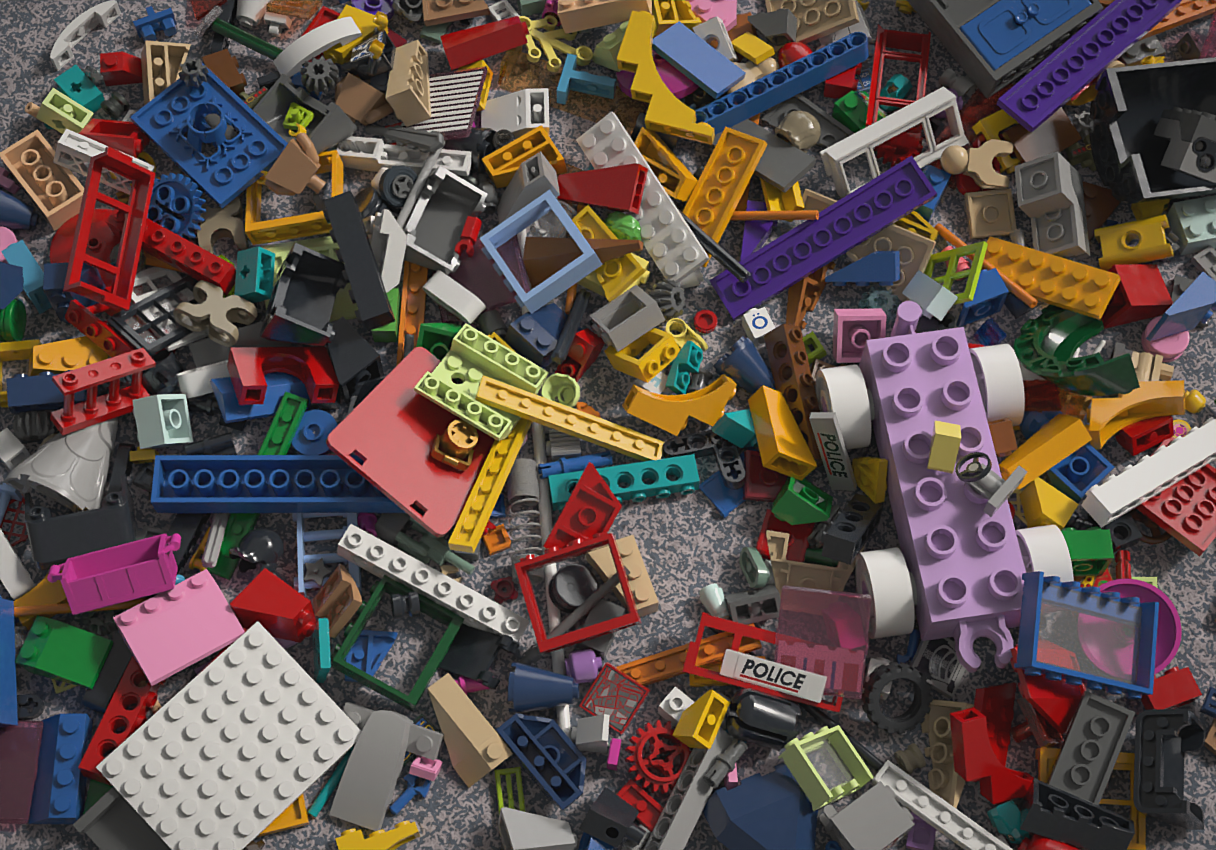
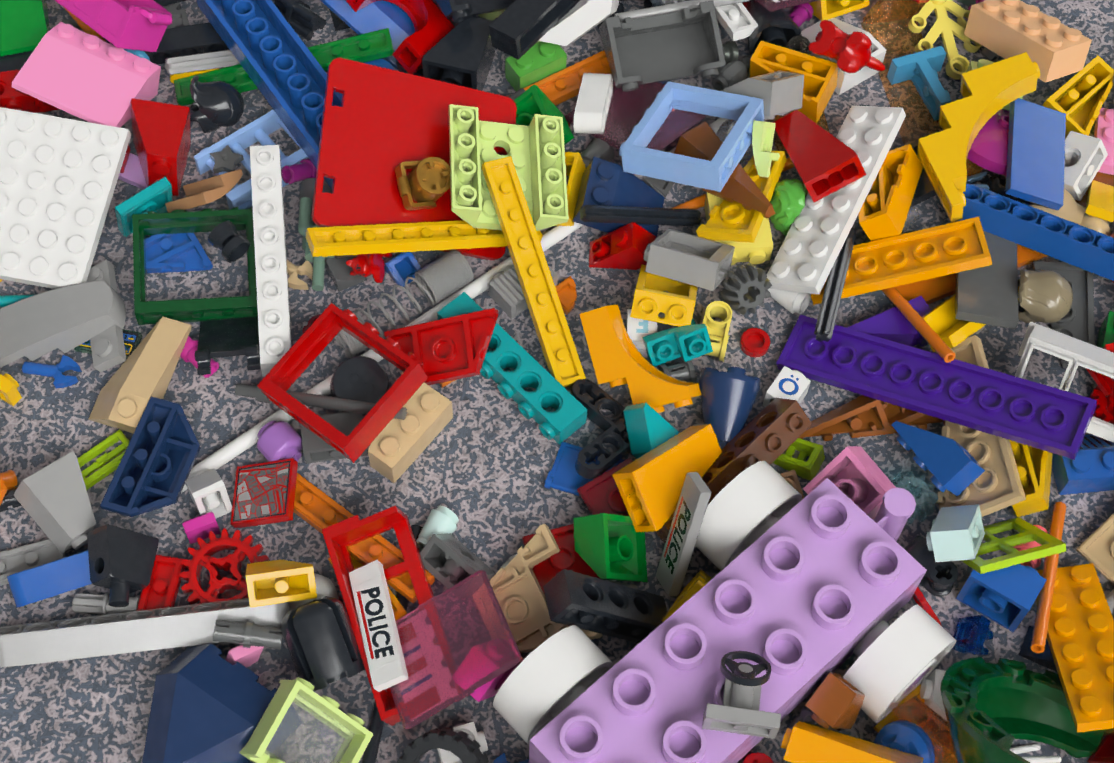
camera: 55 degrees right, 5 degrees down
(425, 768) = (81, 367): bright pink tile -> none
(469, 236) = (681, 75): red bar -> none
(497, 540) = (367, 291): orange tile -> none
(537, 112) = (849, 50): none -> red animal
(539, 689) = (221, 410): dark blue cone -> none
(560, 385) = (569, 246): yellowish green hair -> none
(574, 464) = (506, 318): blue pin -> none
(585, 219) = (762, 146): none -> yellowish green slope
(674, 705) = (290, 548): white brick -> none
(753, 567) = (494, 548): sand green plate -> none
(944, 446) = (750, 622): light yellow slope -> none
(1041, 396) = (923, 720): clear red piece -> none

